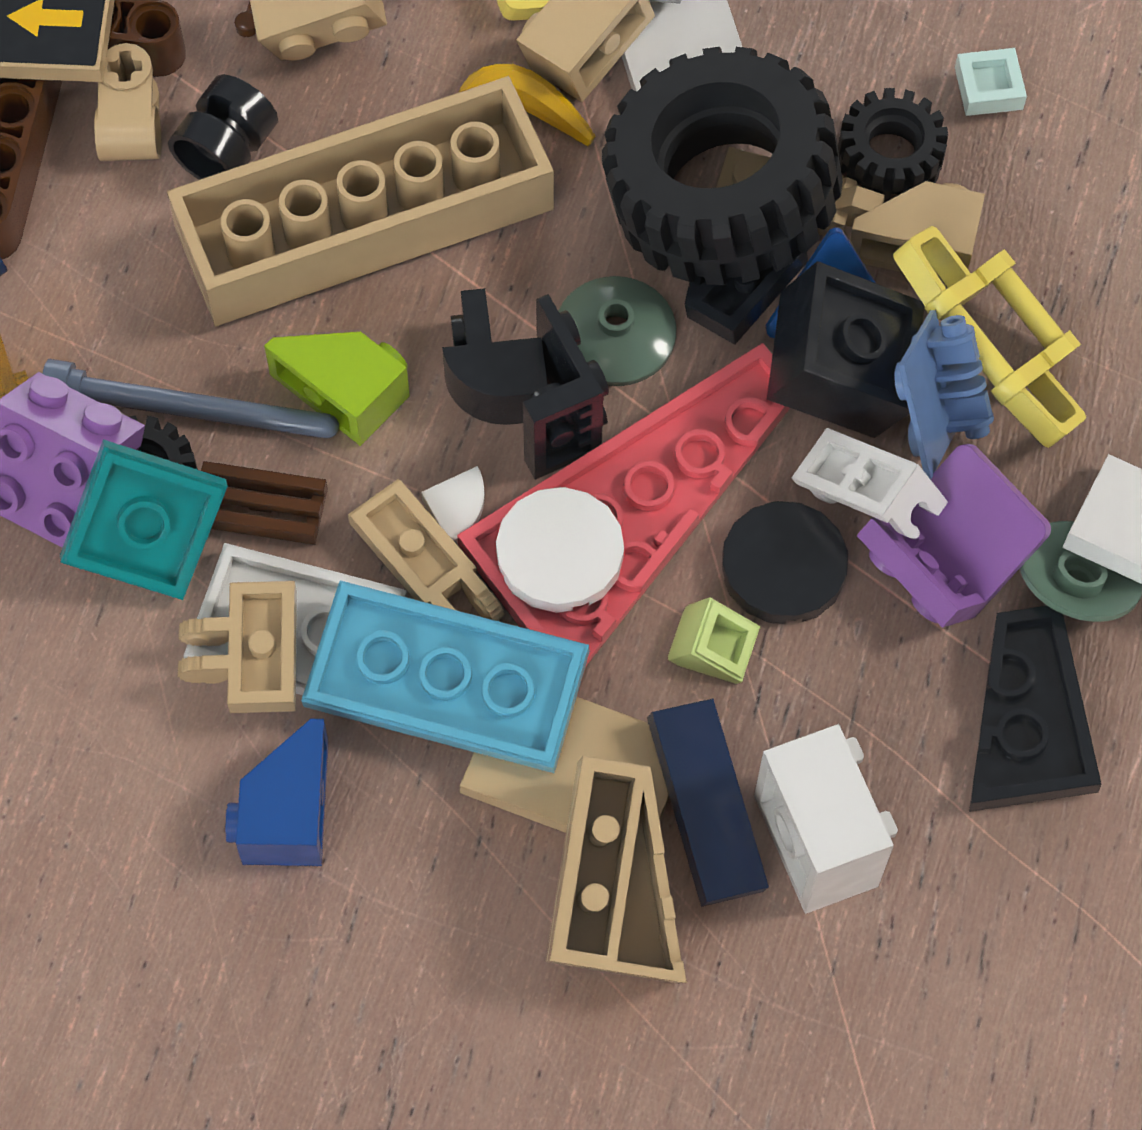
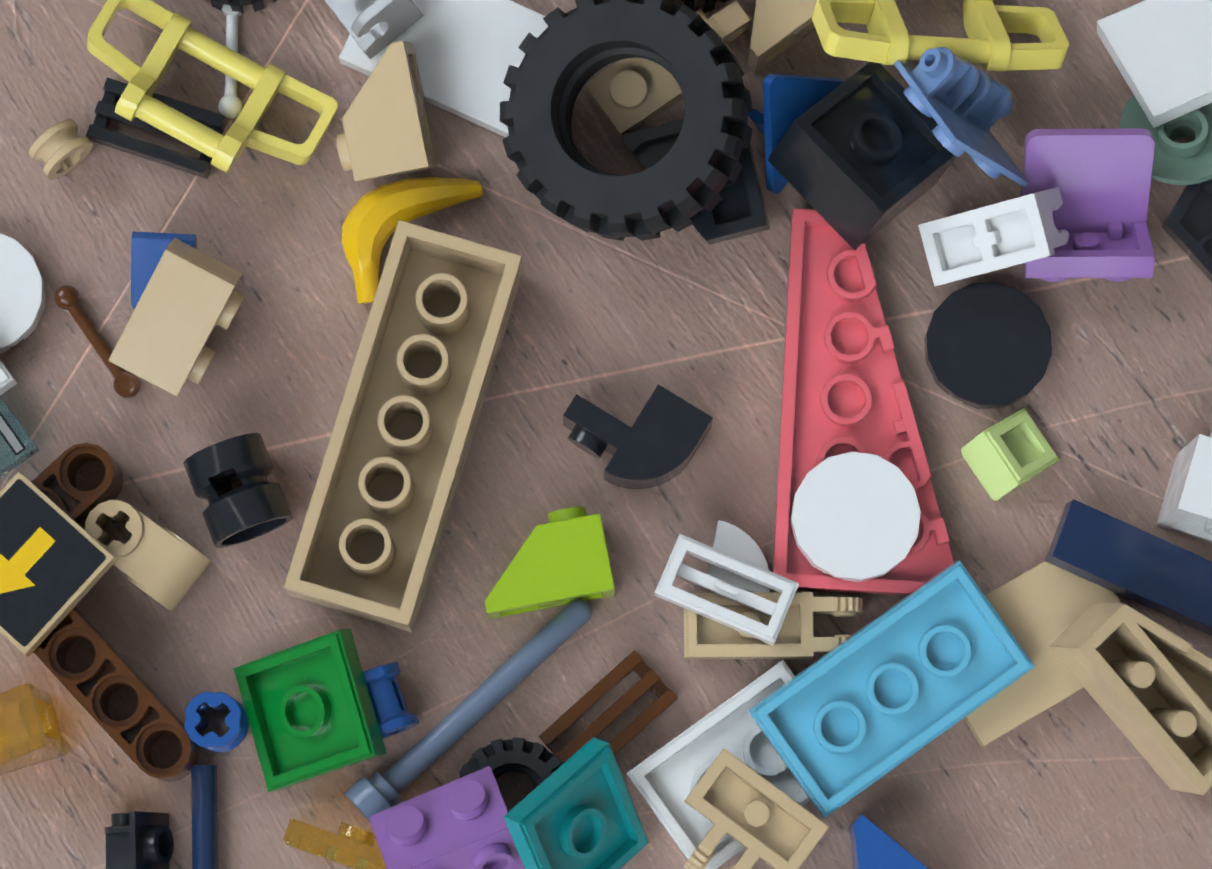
camera: 50 degrees left, 15 degrees up
(28, 236) = (197, 722): none -> blue bush
(94, 290) = (309, 710): none -> green tile
(141, 337) = (388, 700): none -> blue bush
(436, 546) = (717, 613): none -> white tile
(568, 414) = (739, 391): black bracket -> none
(628, 350) = (669, 341): sand green dish -> none

